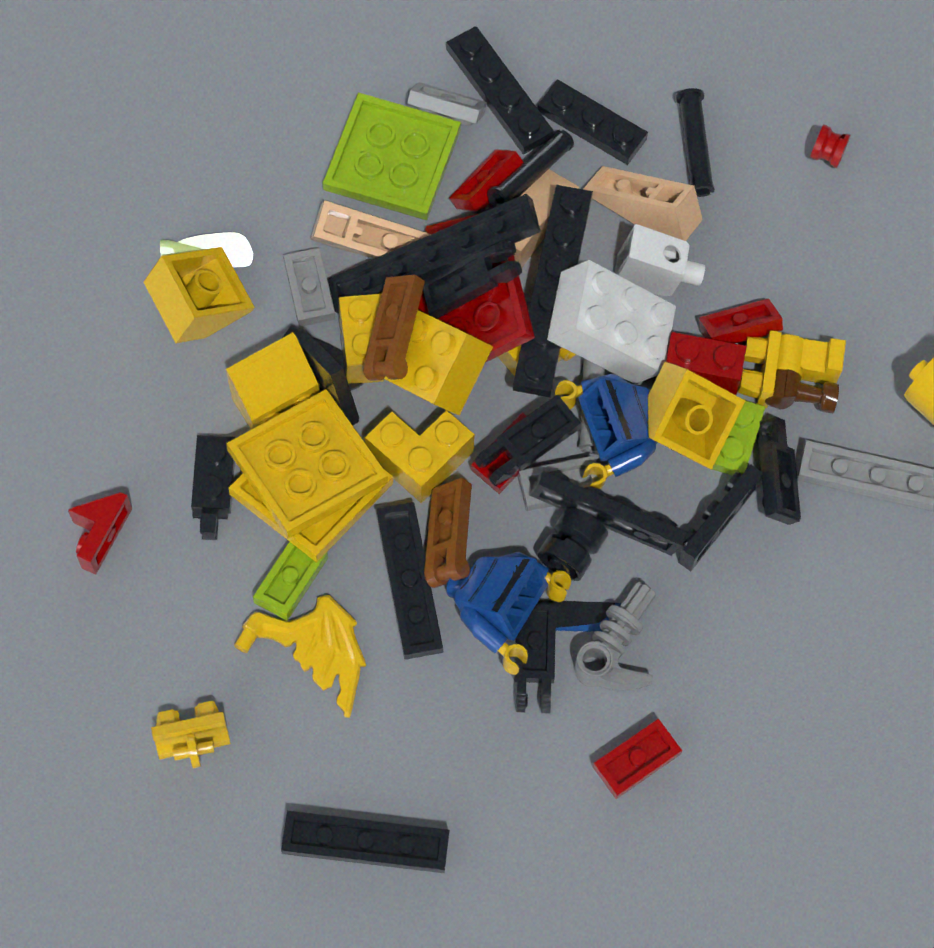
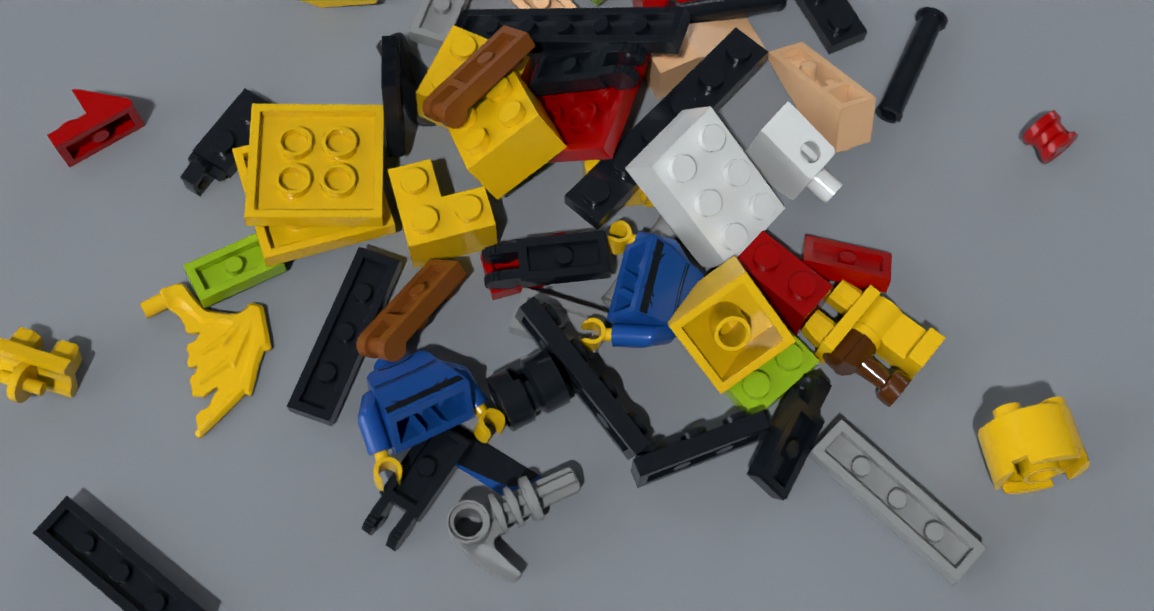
camera: 30 degrees right, 0 degrees up
(271, 381) = (336, 66): yellow slope -> none

